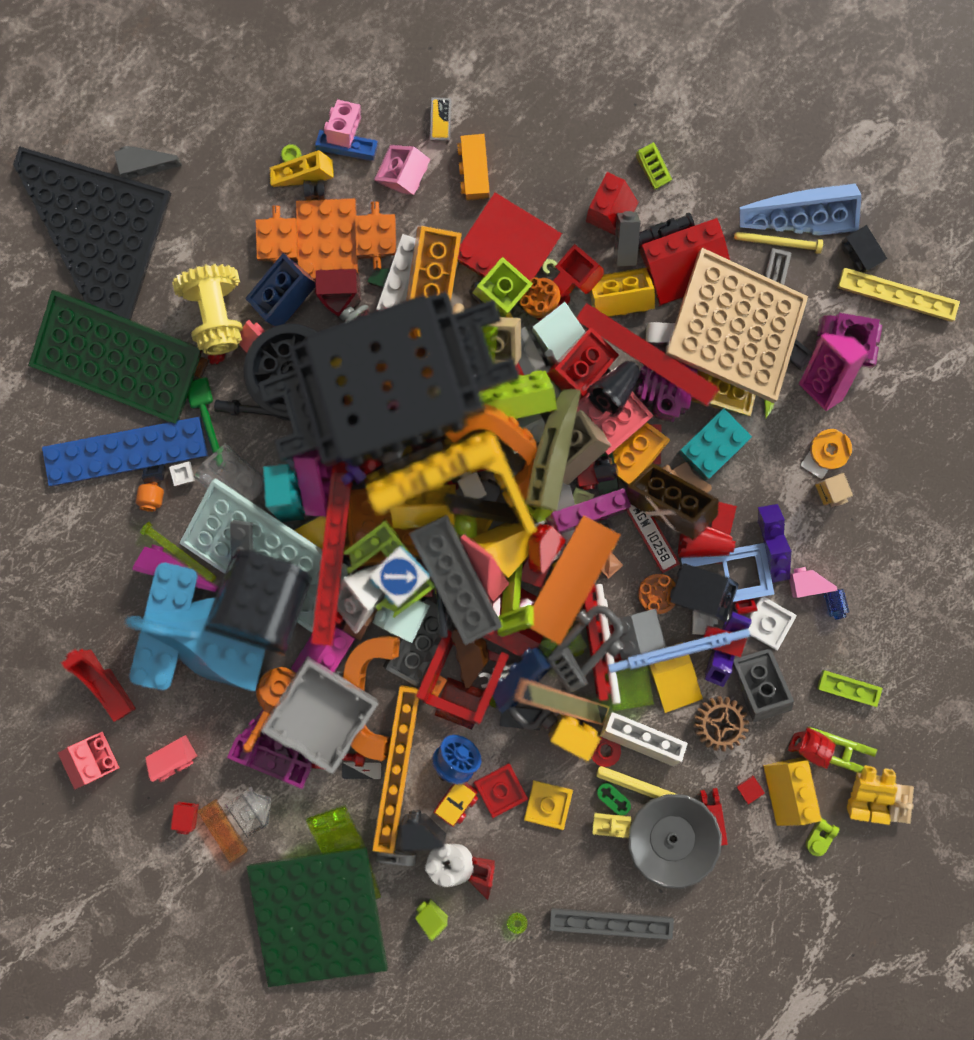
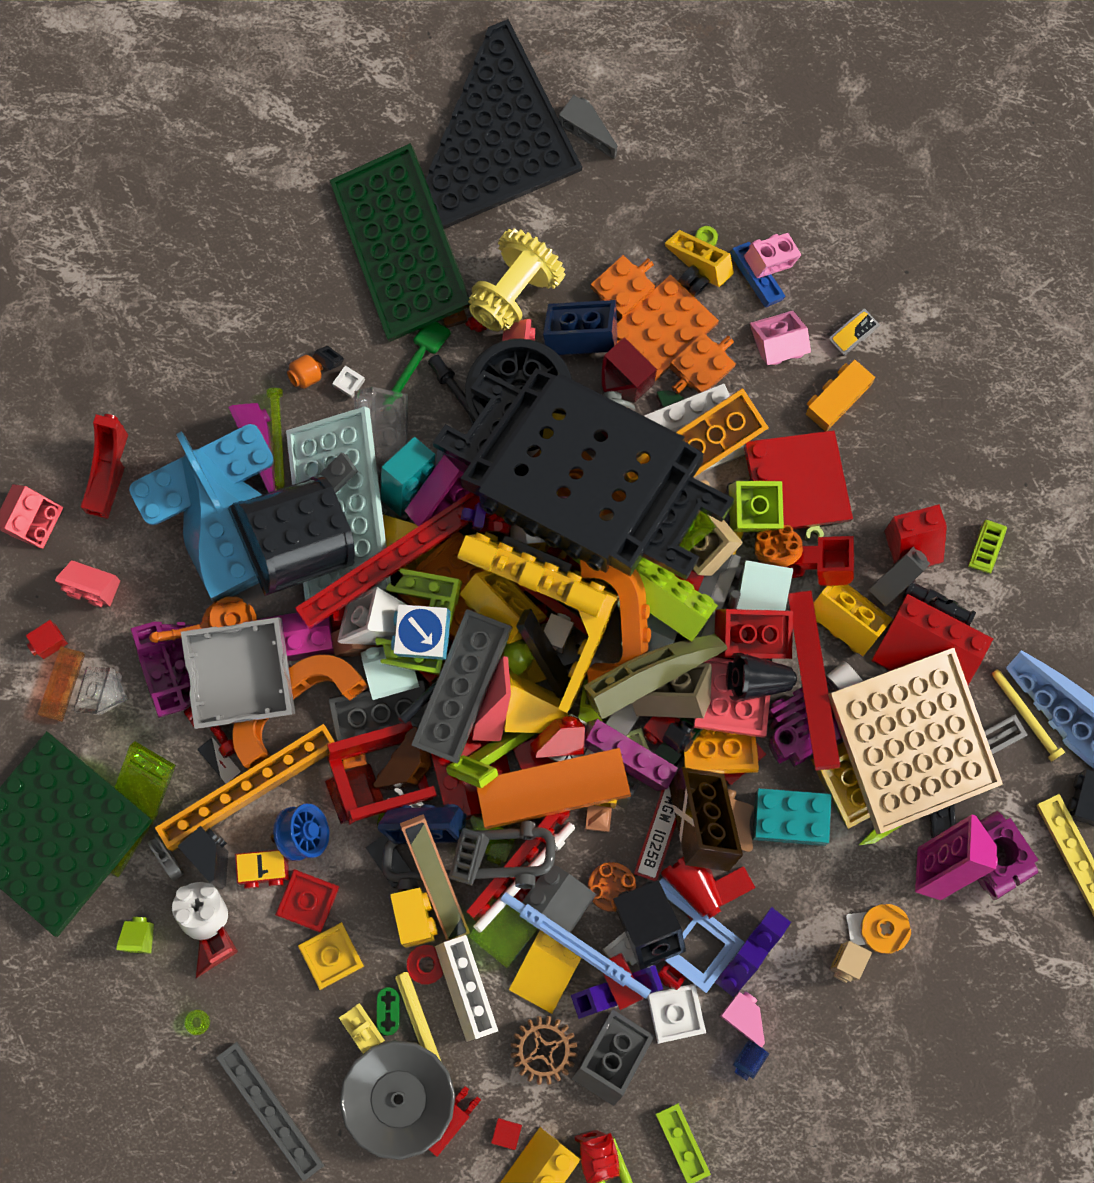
camera: 45 degrees right, 10 degrees down
(124, 451) = (326, 319): blue plate -> none

